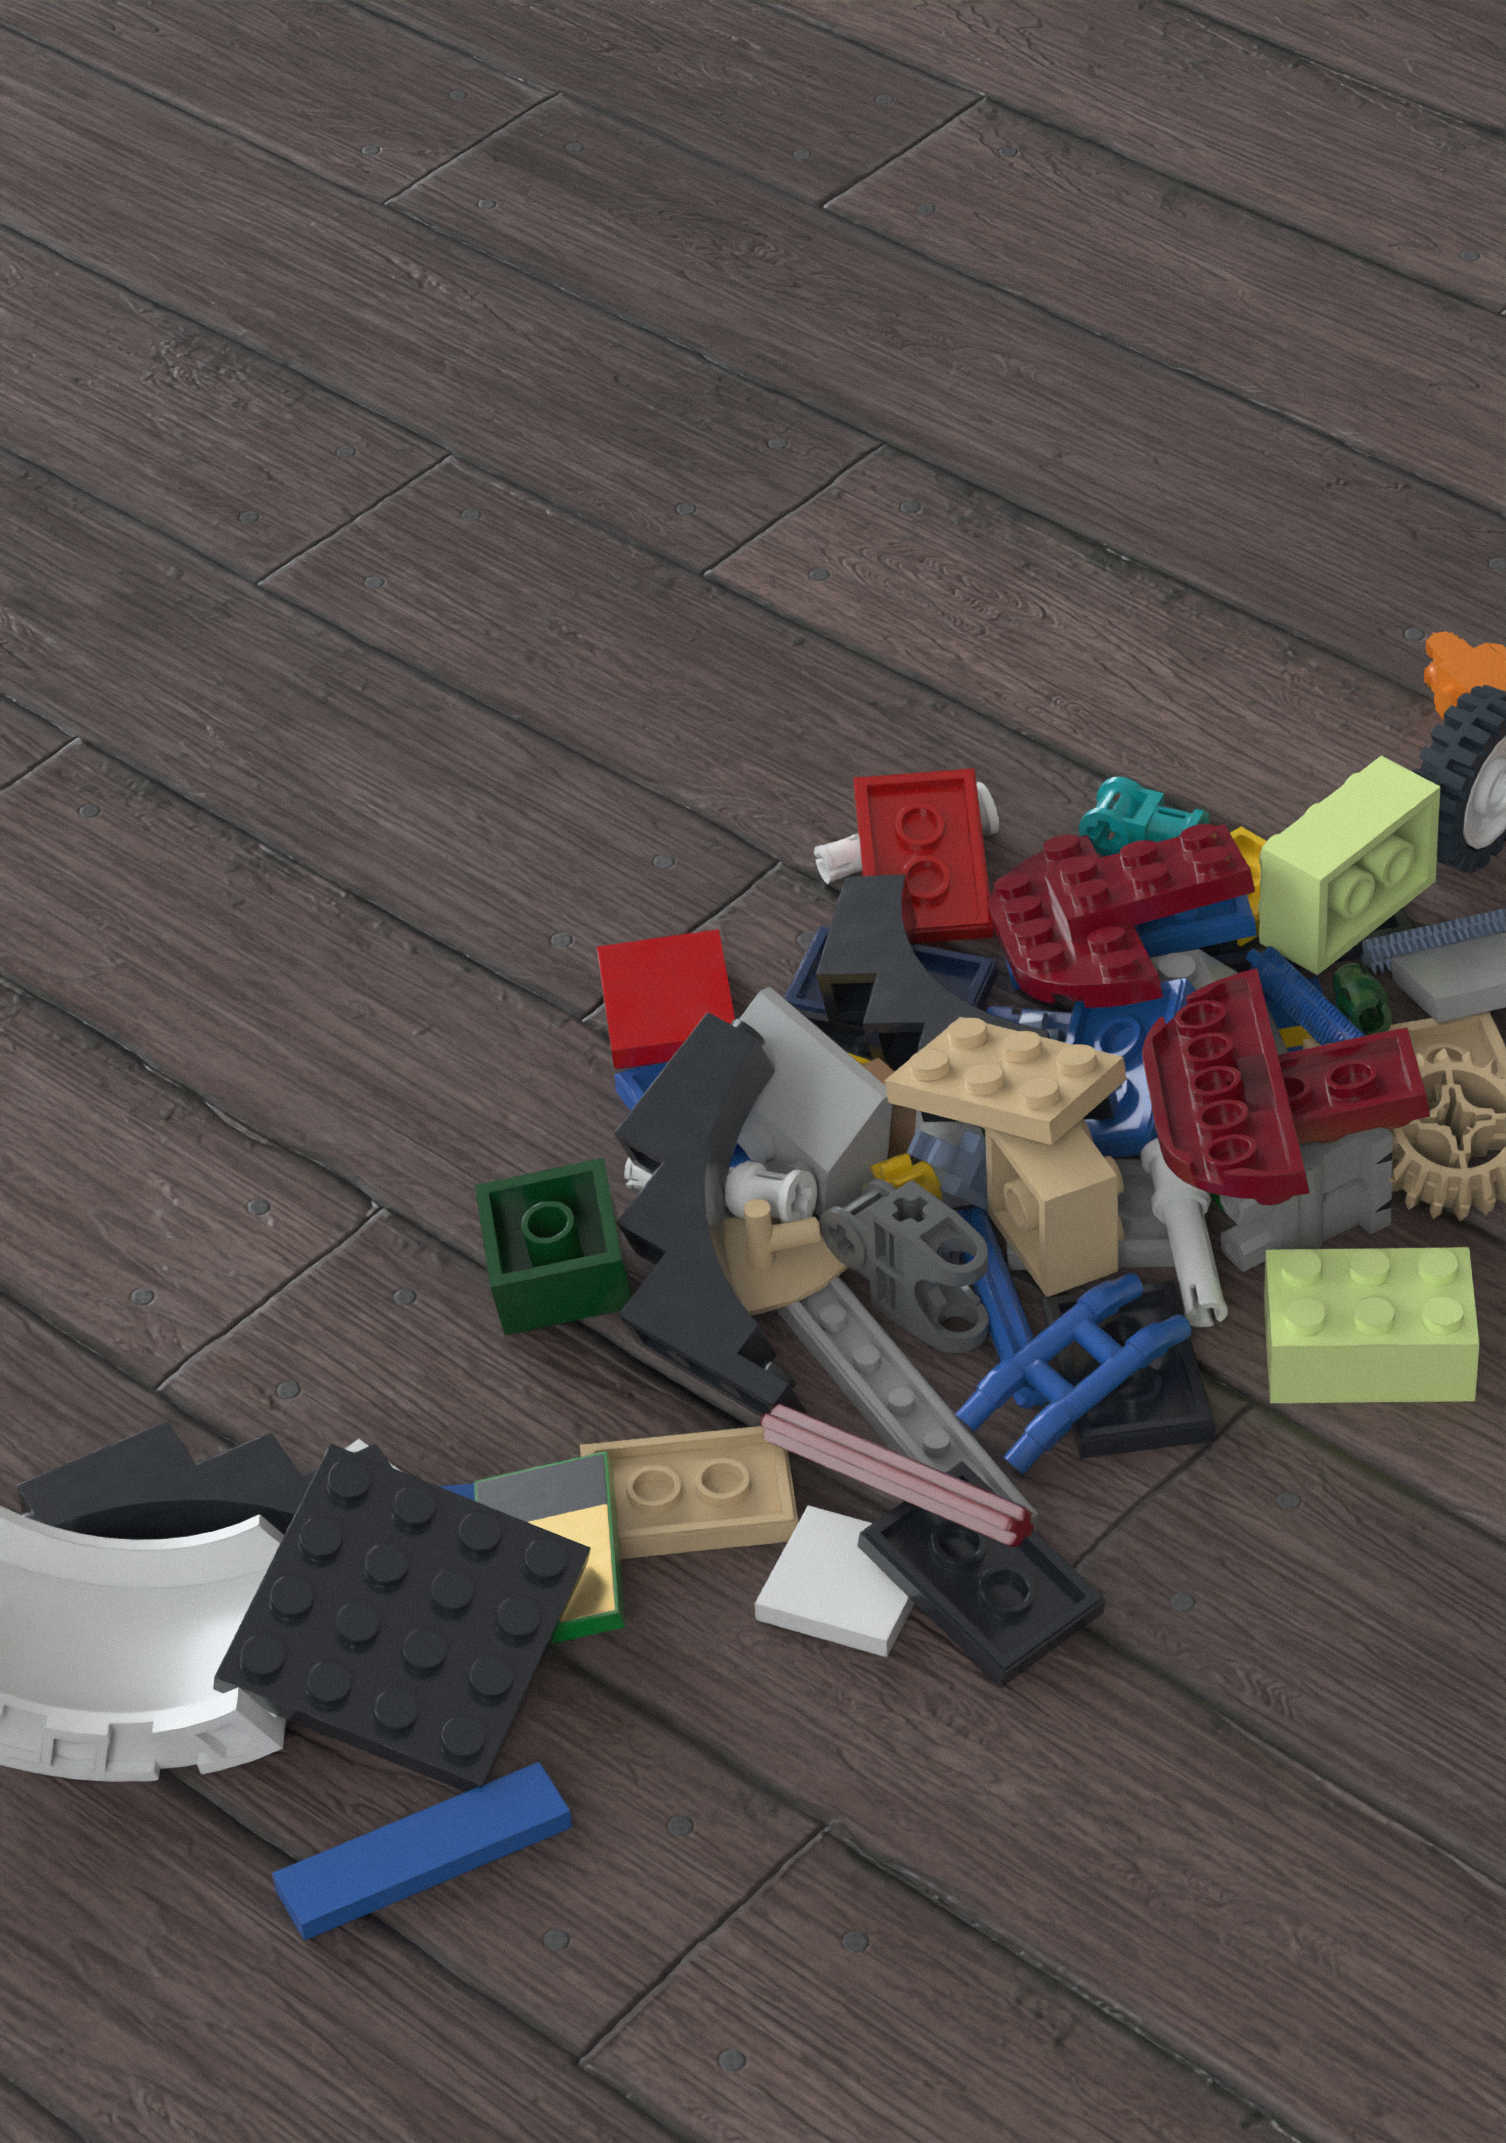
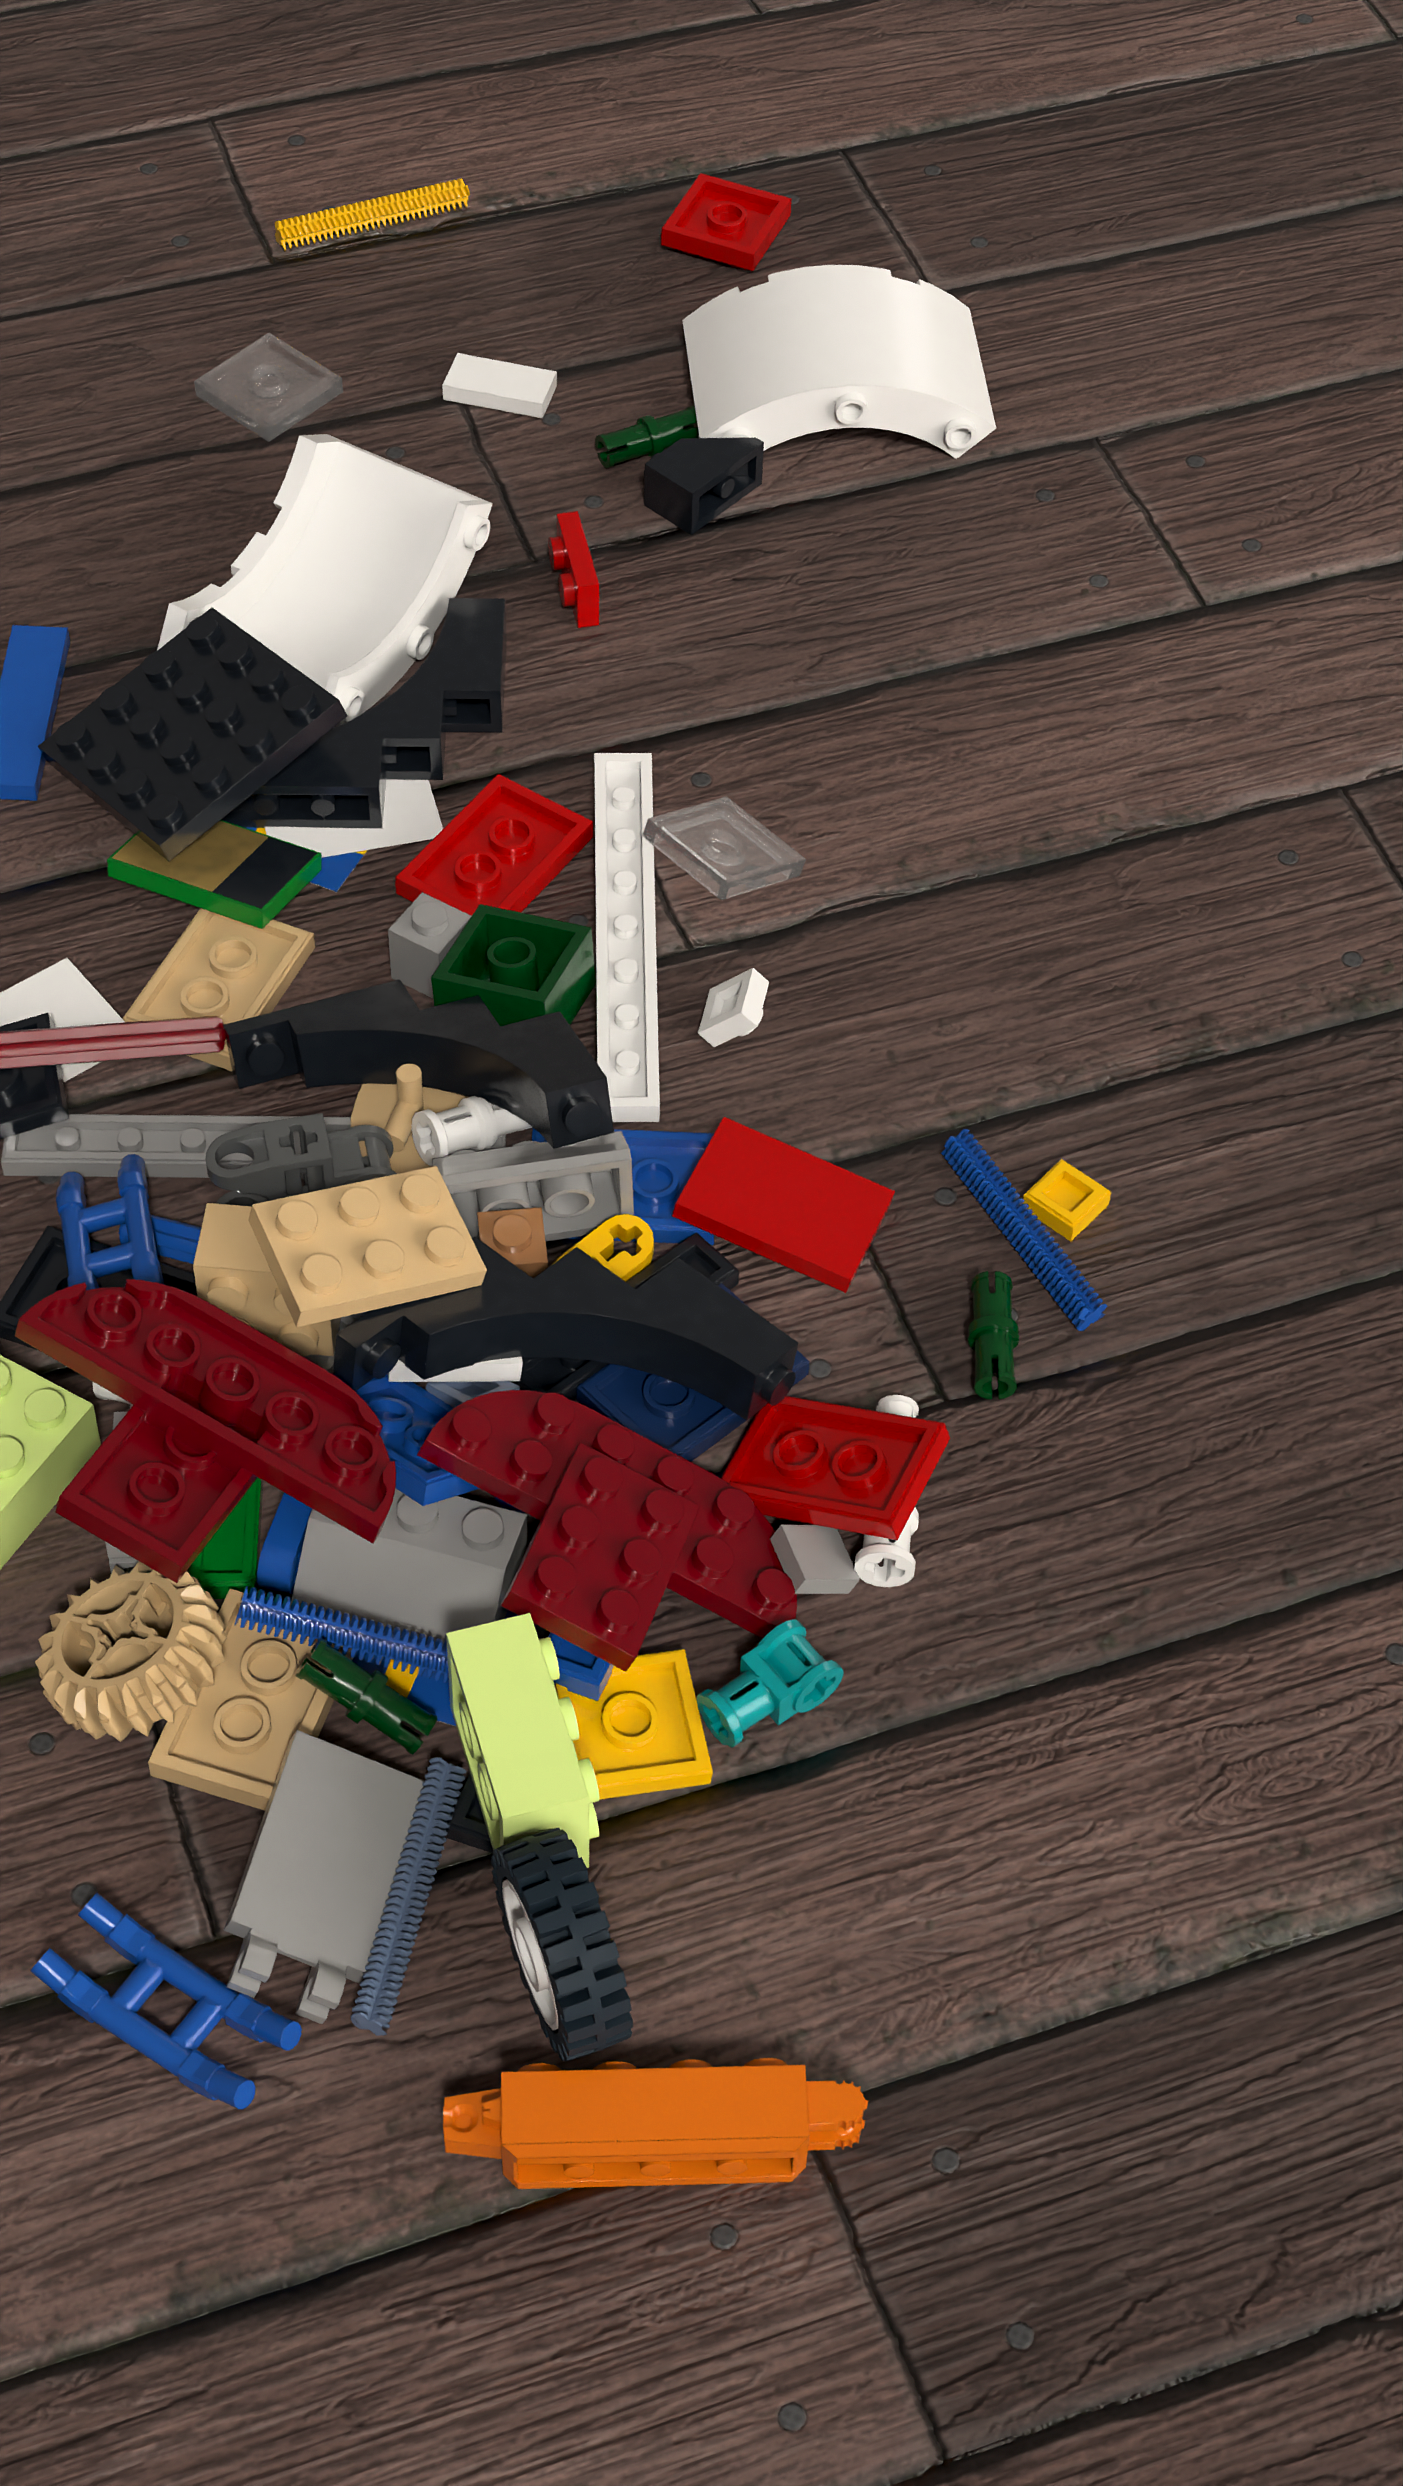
camera: 115 degrees right, 10 degrees up
(256, 1204) = (723, 847): none -> clear tile
(369, 1247) = (626, 936): none -> white plate
(380, 1363) = (497, 850): none -> red plate
(461, 1116) = (734, 1007): none -> white plate
(517, 863) = (1067, 1199): none -> yellow tile
(545, 1336) = (422, 940): none -> light grey brick
(571, 871) = (1023, 1230): none -> blue axle
(702, 843) = (993, 1335): none -> dark green pin
(1014, 845) = (814, 1559): none -> light grey tile

